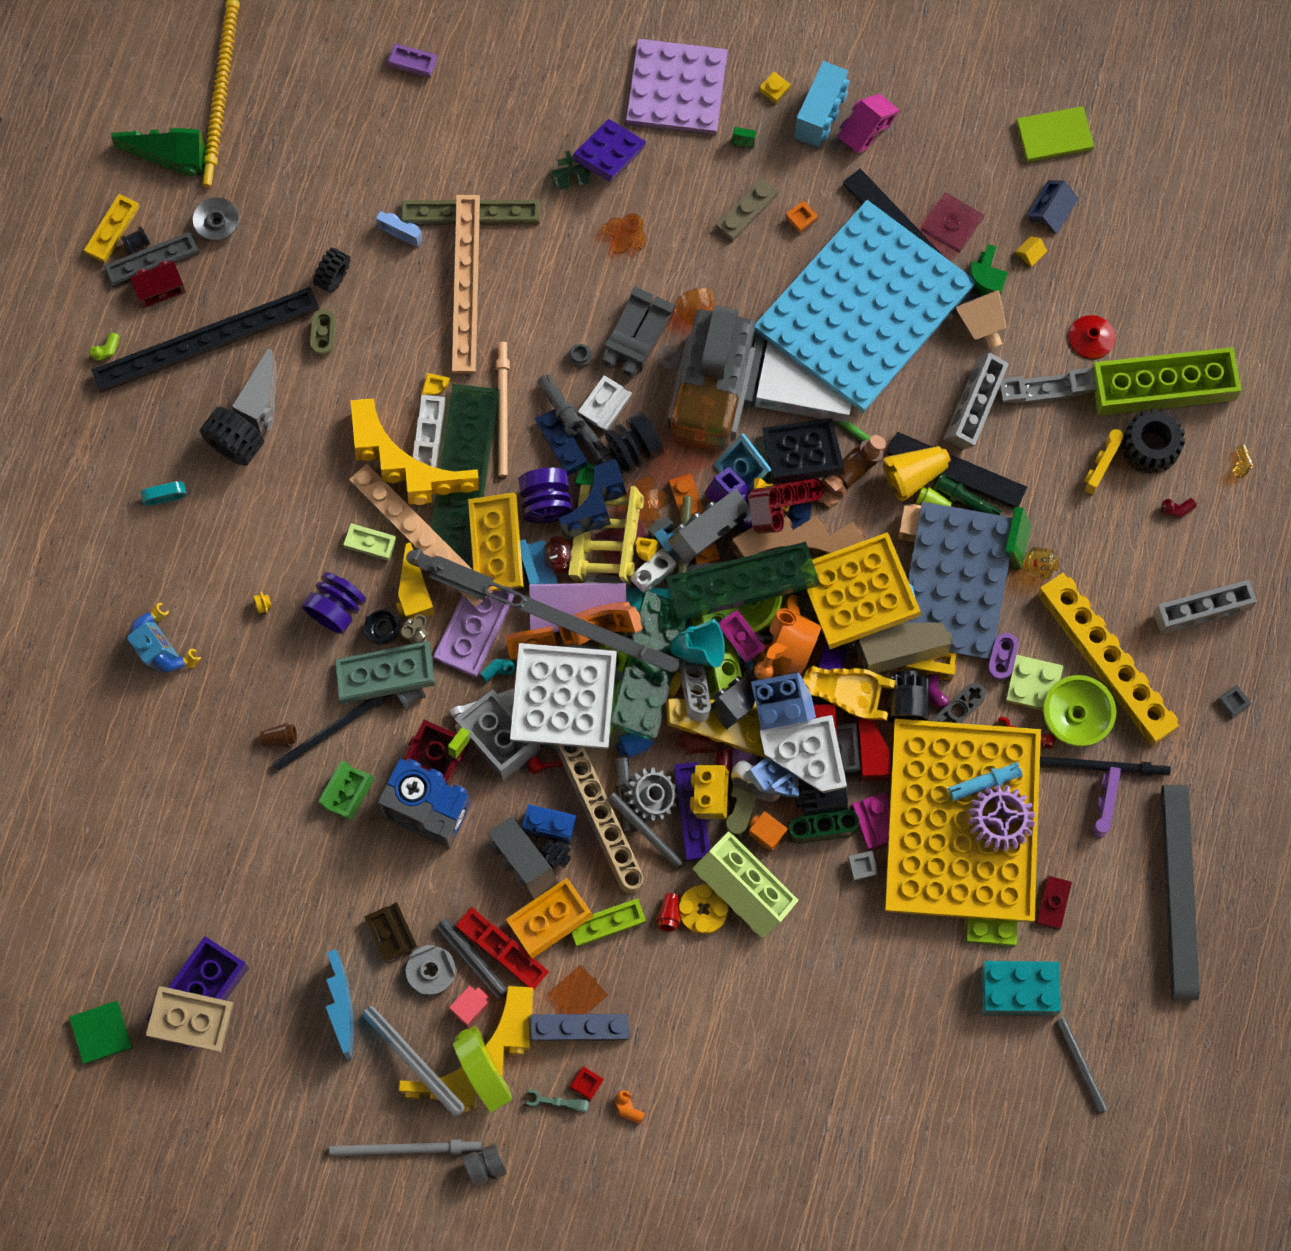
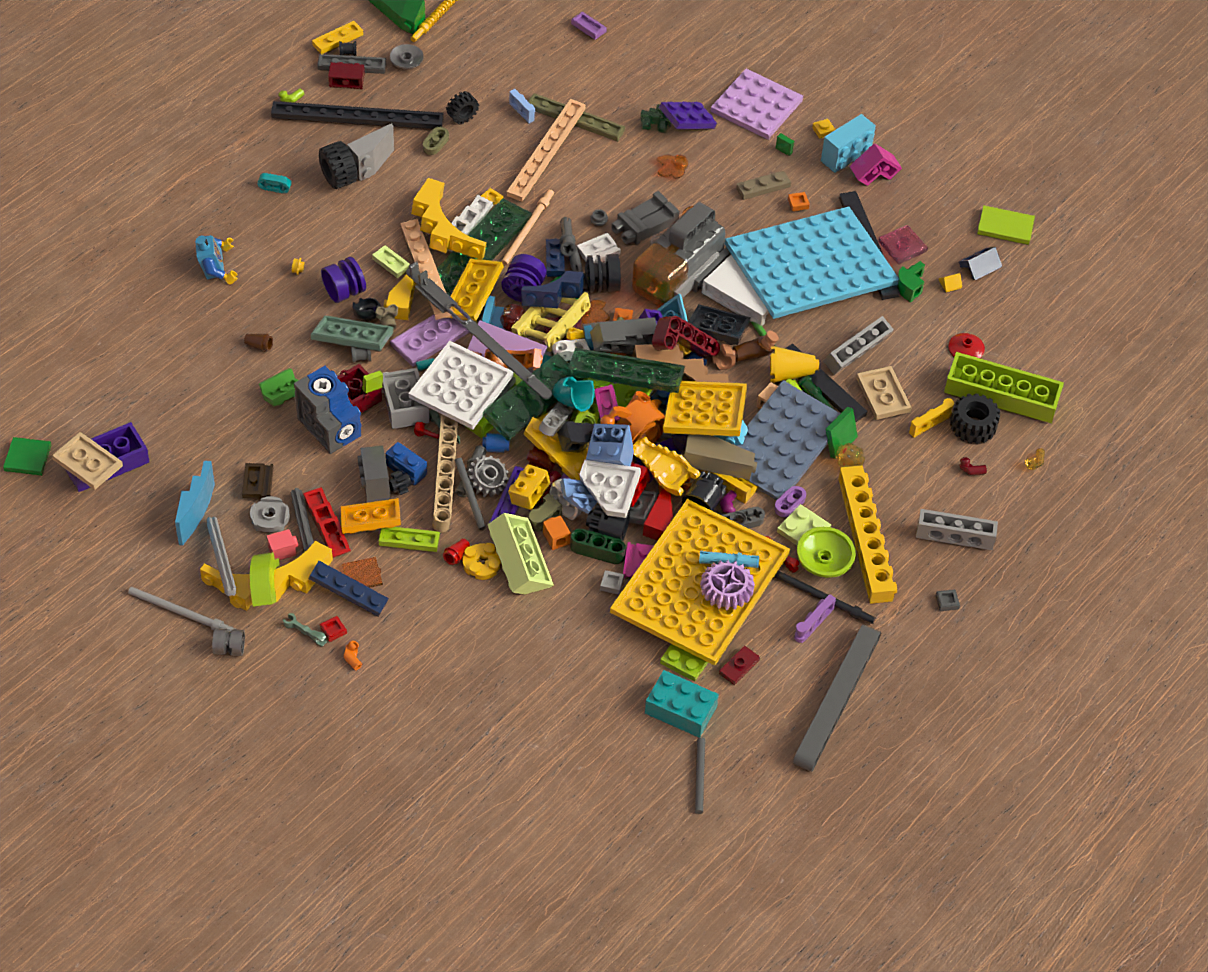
camera: 25 degrees right, 20 degrees down
(329, 730) = (336, 349): black bar -> none
(984, 318) = (893, 300): light nougat torso -> none
(1033, 451) = (883, 392): none -> tan plate
(1048, 388) = (915, 362): light grey slope -> none

